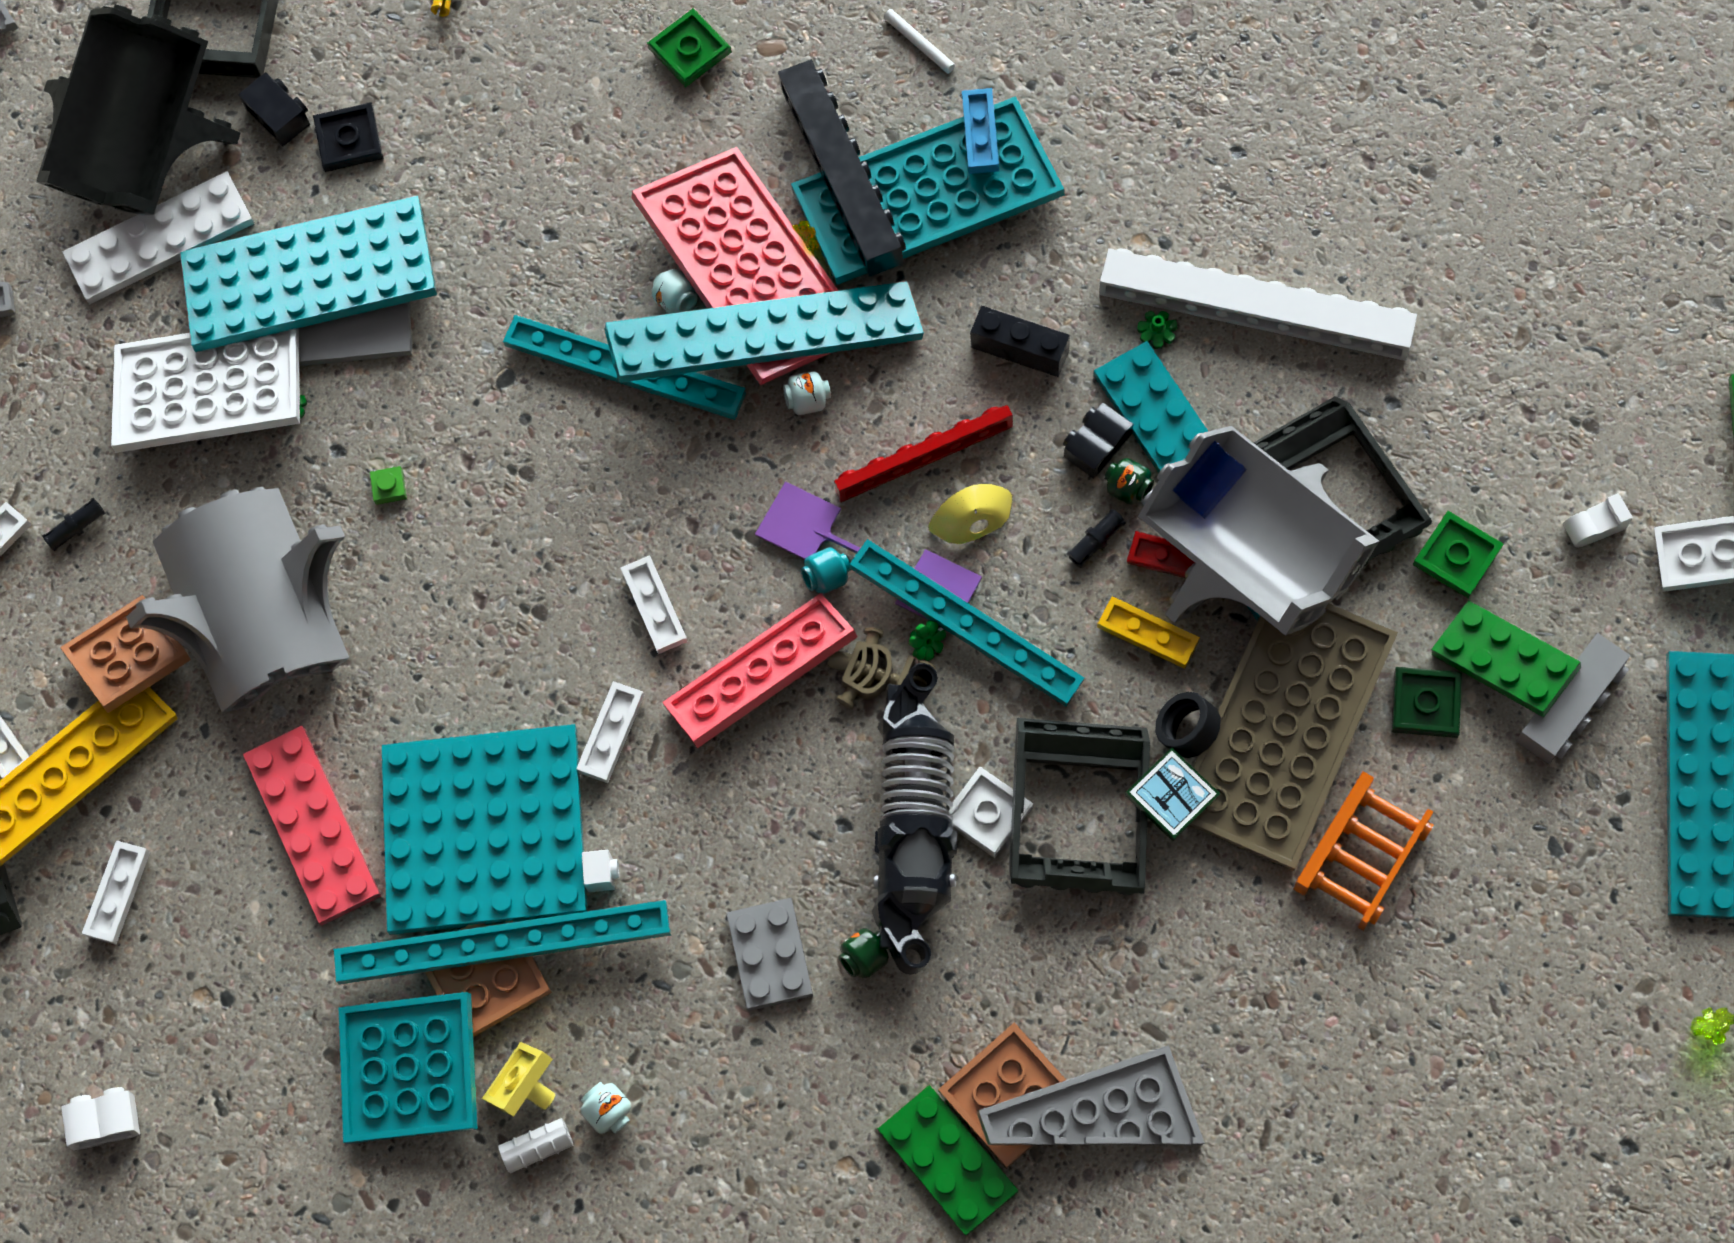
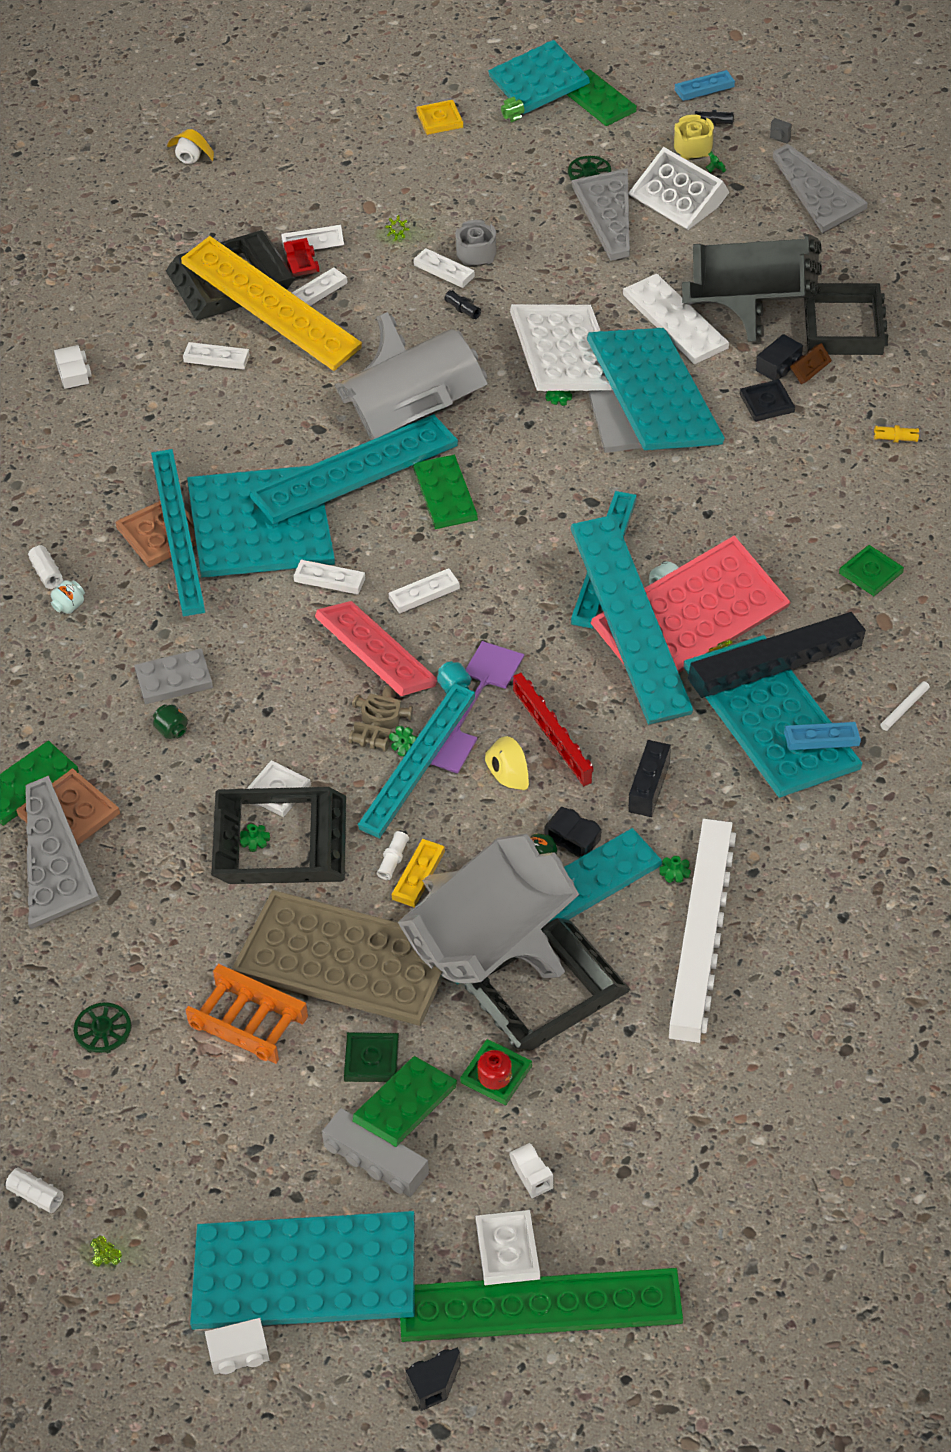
camera: 80 degrees right, 20 degrees down
(122, 660) = (362, 332): nougat plate -> none
(292, 71) = (811, 363): none -> reddish brown plate
(312, 825) = (263, 440): coral plate -> none
(388, 485) = (504, 449): bright green plate -> none
(407, 1068) = (96, 497): teal plate -> none
(412, 692) = (353, 468): none -> teal plate
(459, 570) = (445, 491): none -> green plate
(520, 1081) = (84, 552): light yellow tile -> none
(599, 870) = (230, 578): white plate -> none
(806, 393) = (592, 656): light aqua head -> none
(916, 828) = (253, 736): piece -> none
(1069, 842) = (254, 837): none -> green plant
(1096, 538) = (484, 831): black pin -> none
(1117, 663) = (392, 855): none -> white pin
(1172, 794) = (284, 883): tile -> none
(1202, 735) = (341, 893): black tyre -> none
(1209, 480) = (534, 883): clear blue panel -> none
(1369, 1041) = (102, 1028): none -> dark green wheel
(1477, 546) = (494, 1069): none -> red head
(1623, 1117) = (34, 1190): none -> white axle

